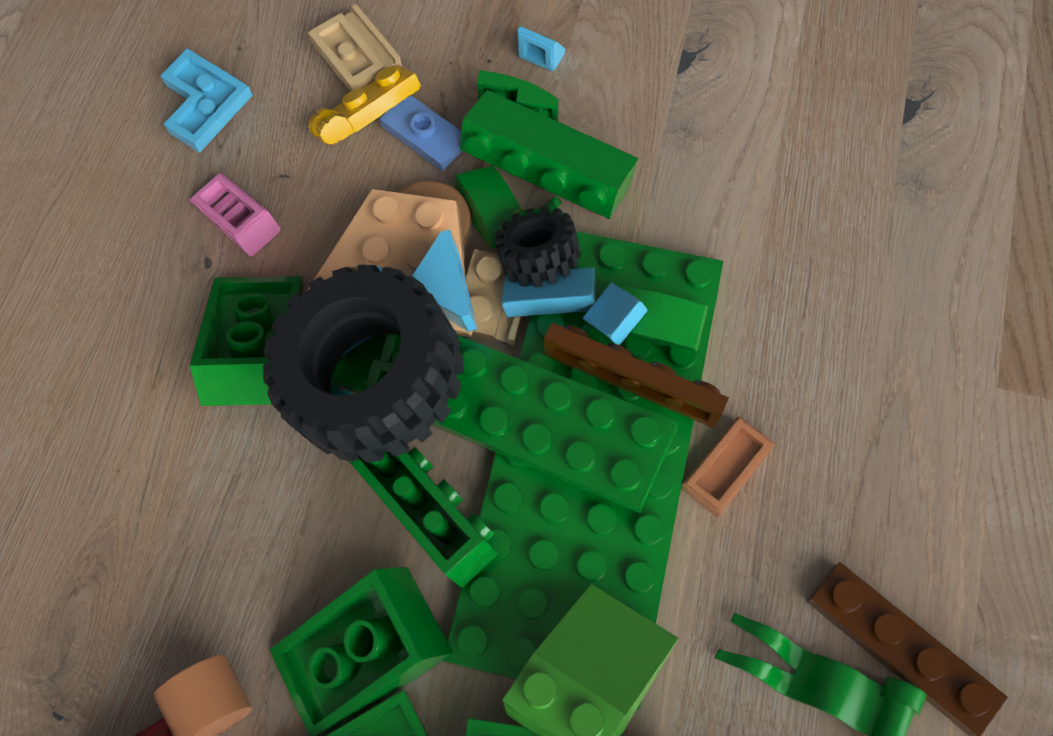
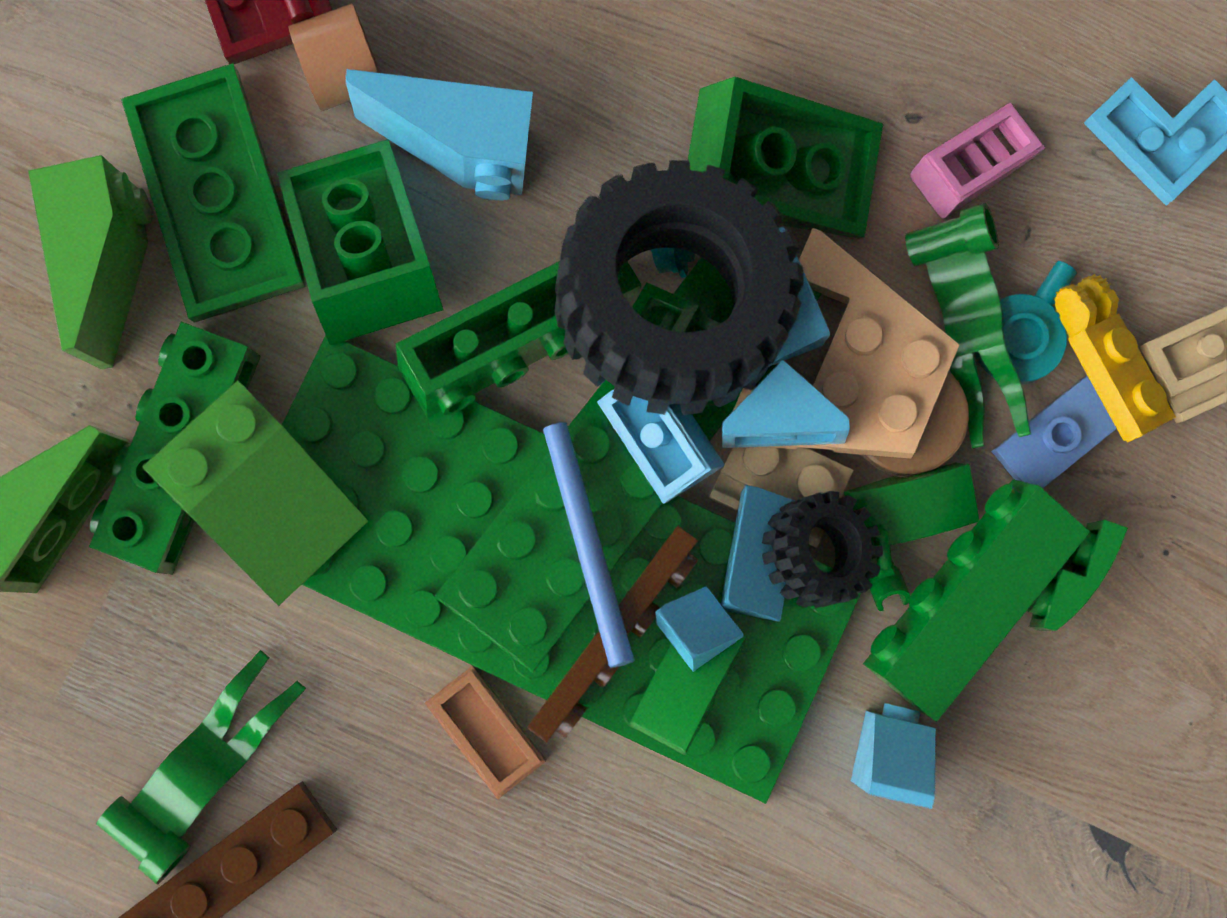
camera: 100 degrees right, 15 degrees up
(256, 582) = (456, 128): none -> medium azure slope
(338, 197) = (971, 309): none -> green flag
(354, 163) = (1033, 327): none -> teal piece
(486, 364) = (665, 447): none -> medium azure slope
(539, 49) = (1166, 630): medium azure slope -> none
(572, 398) = (588, 545): none -> medium blue bar
(670, 179) = (896, 756): none -> medium azure slope

